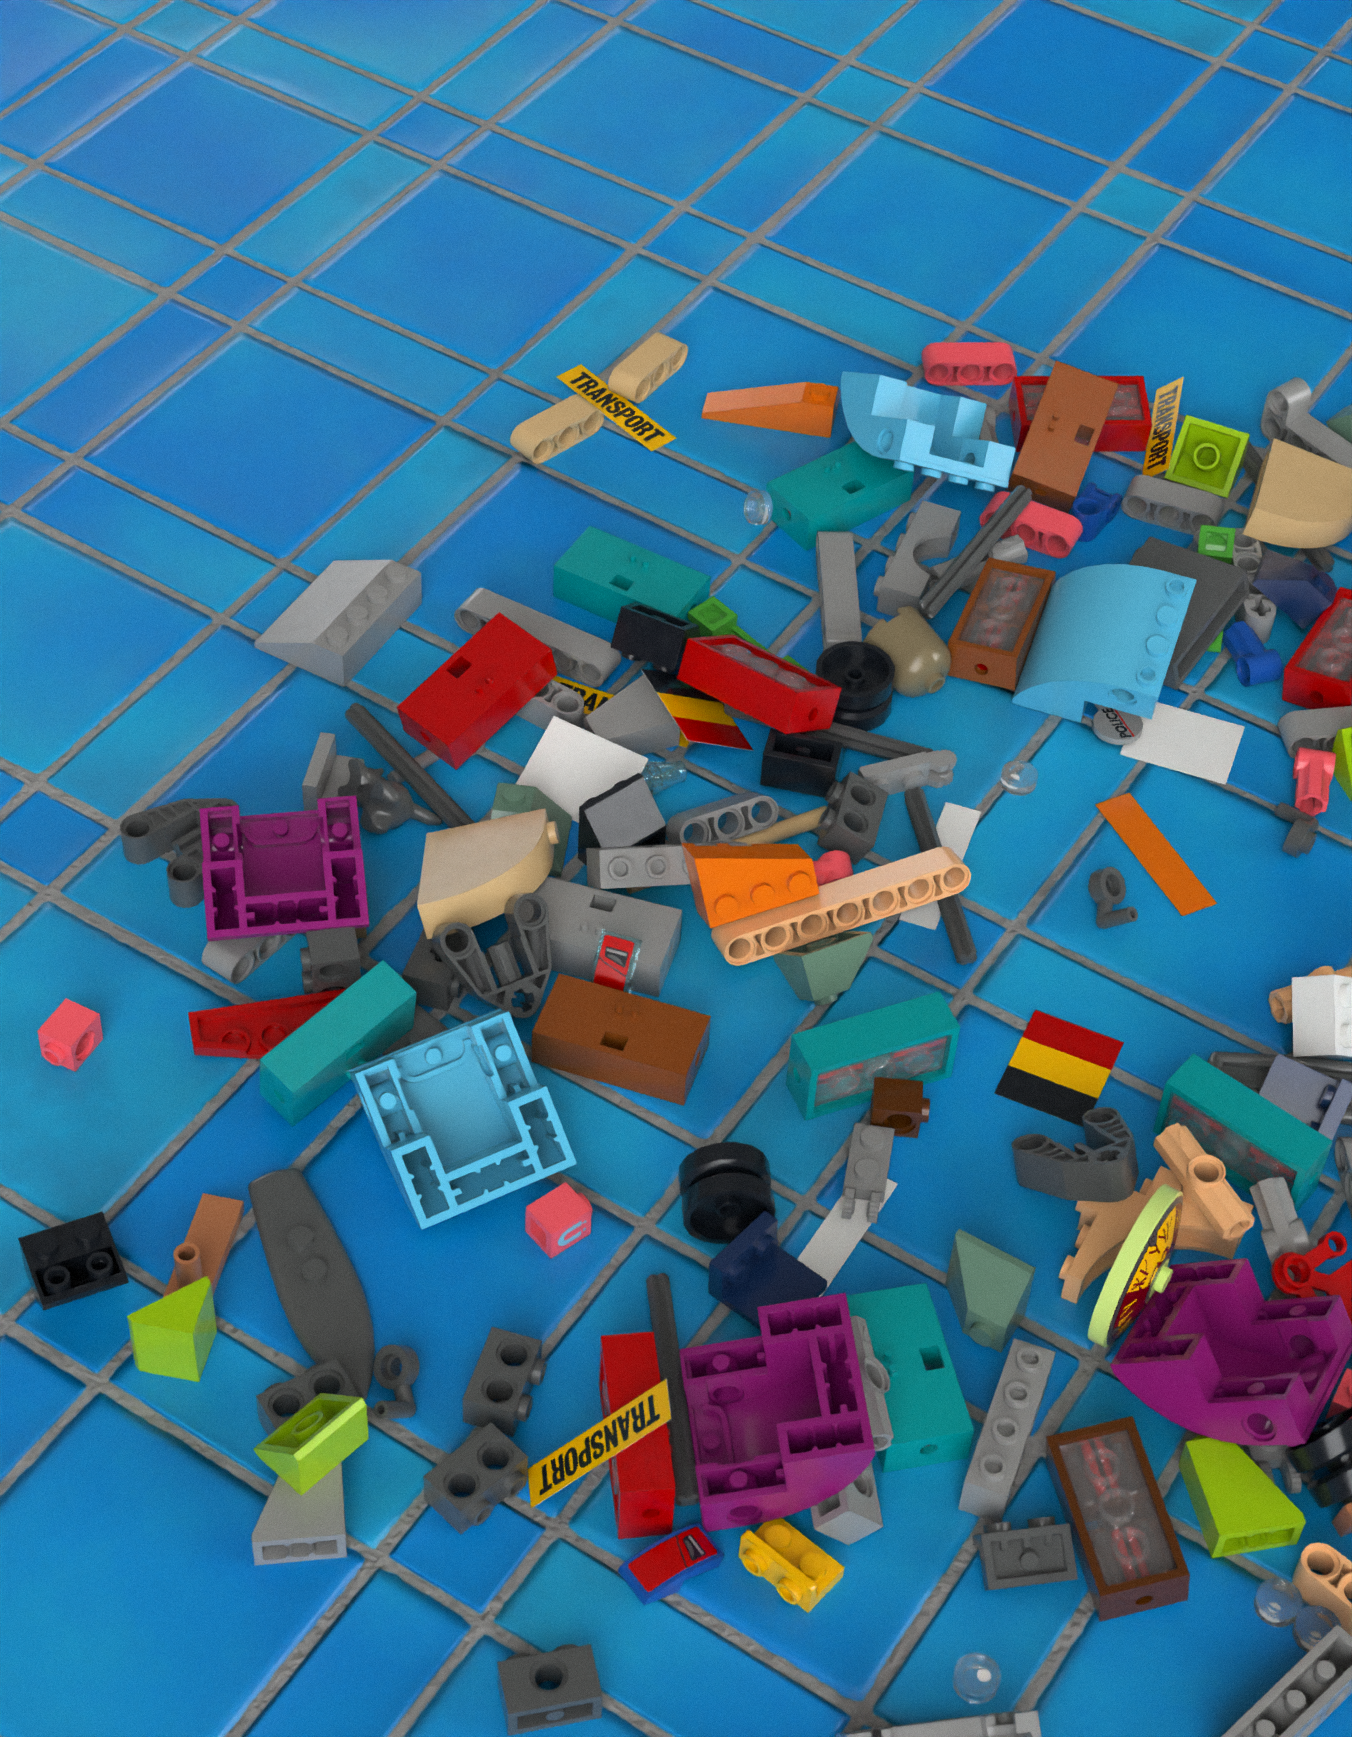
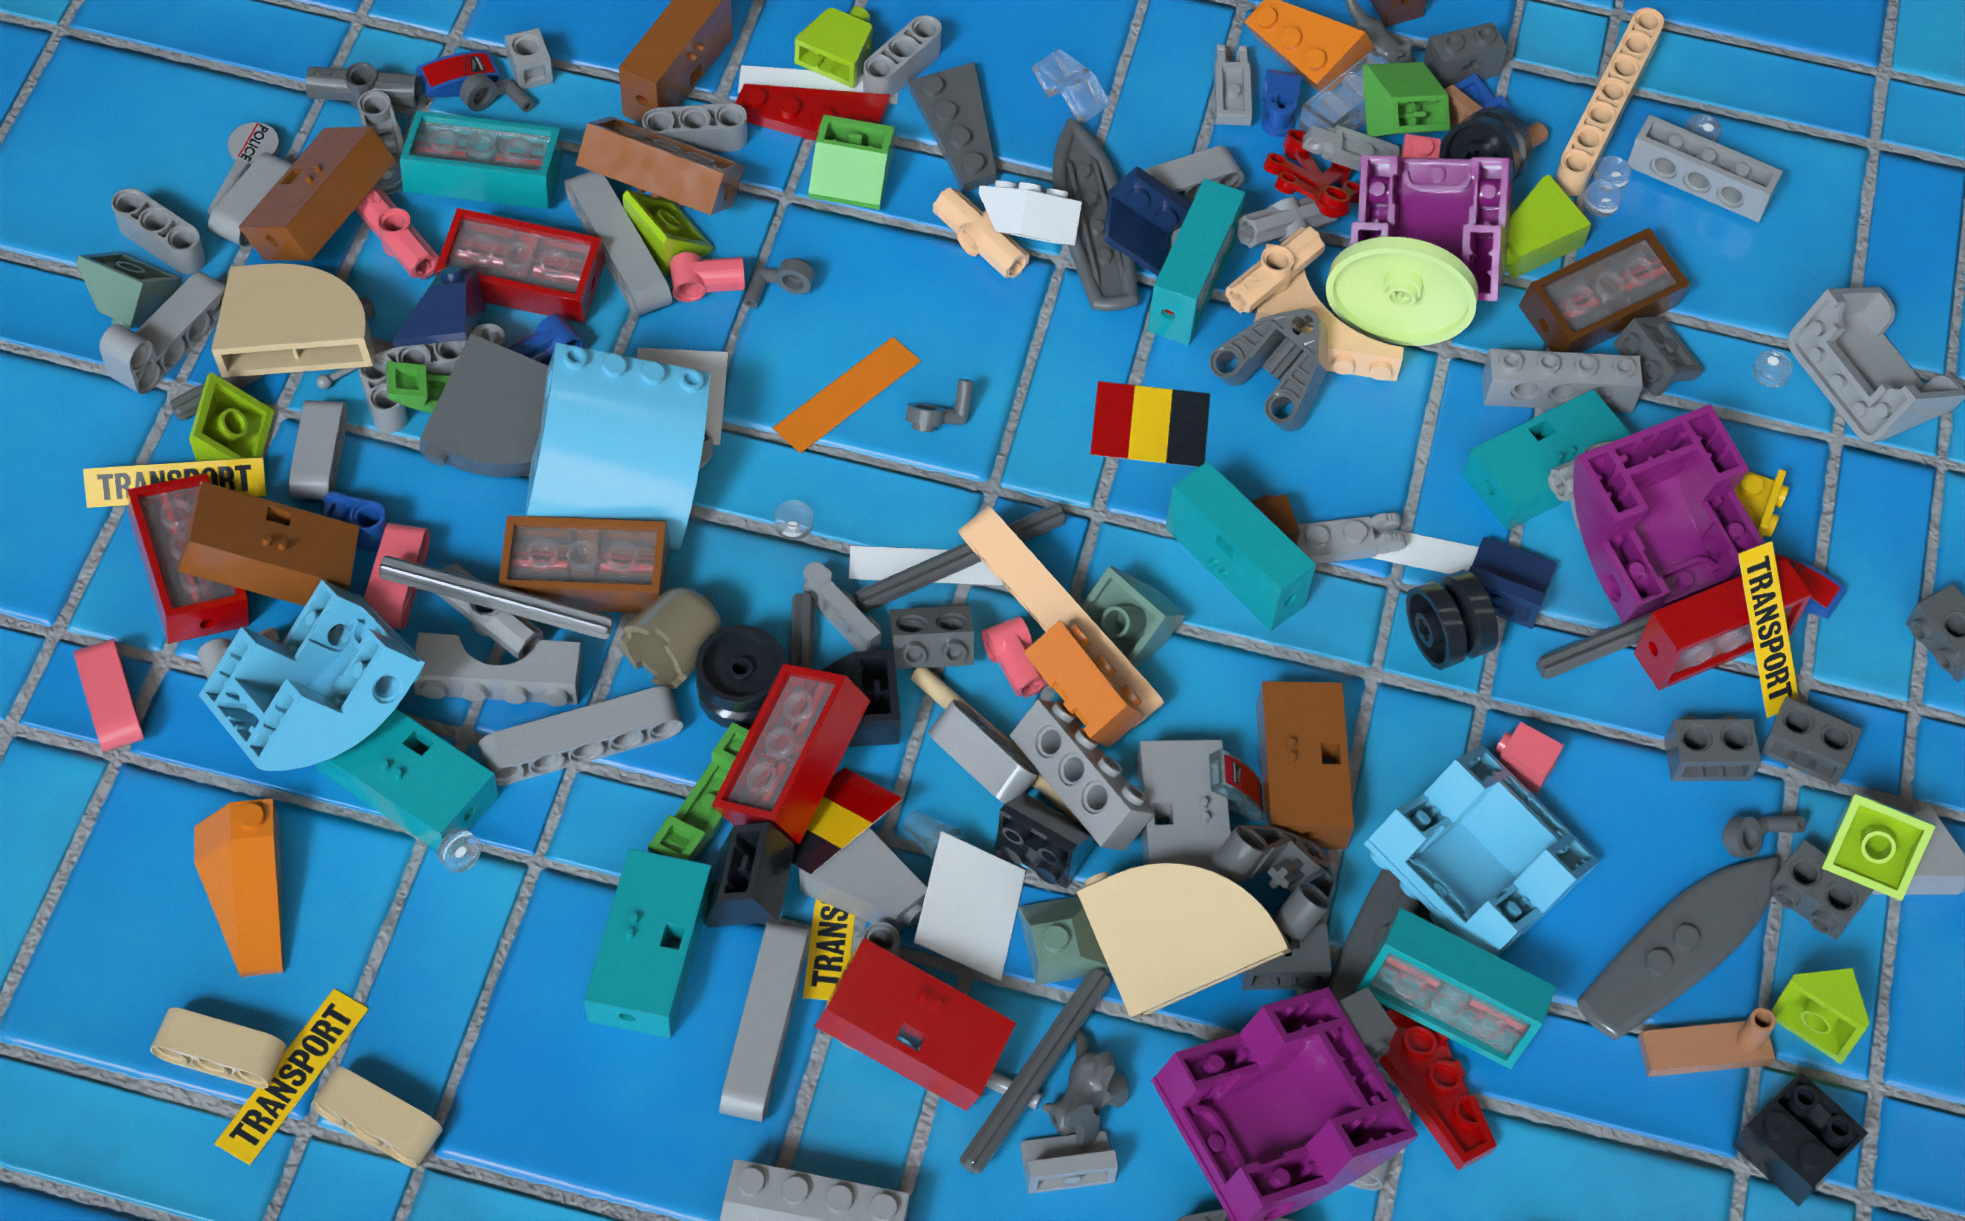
camera: 110 degrees left, 10 degrees up
(987, 1290) = (1450, 413): sand green slope -> none

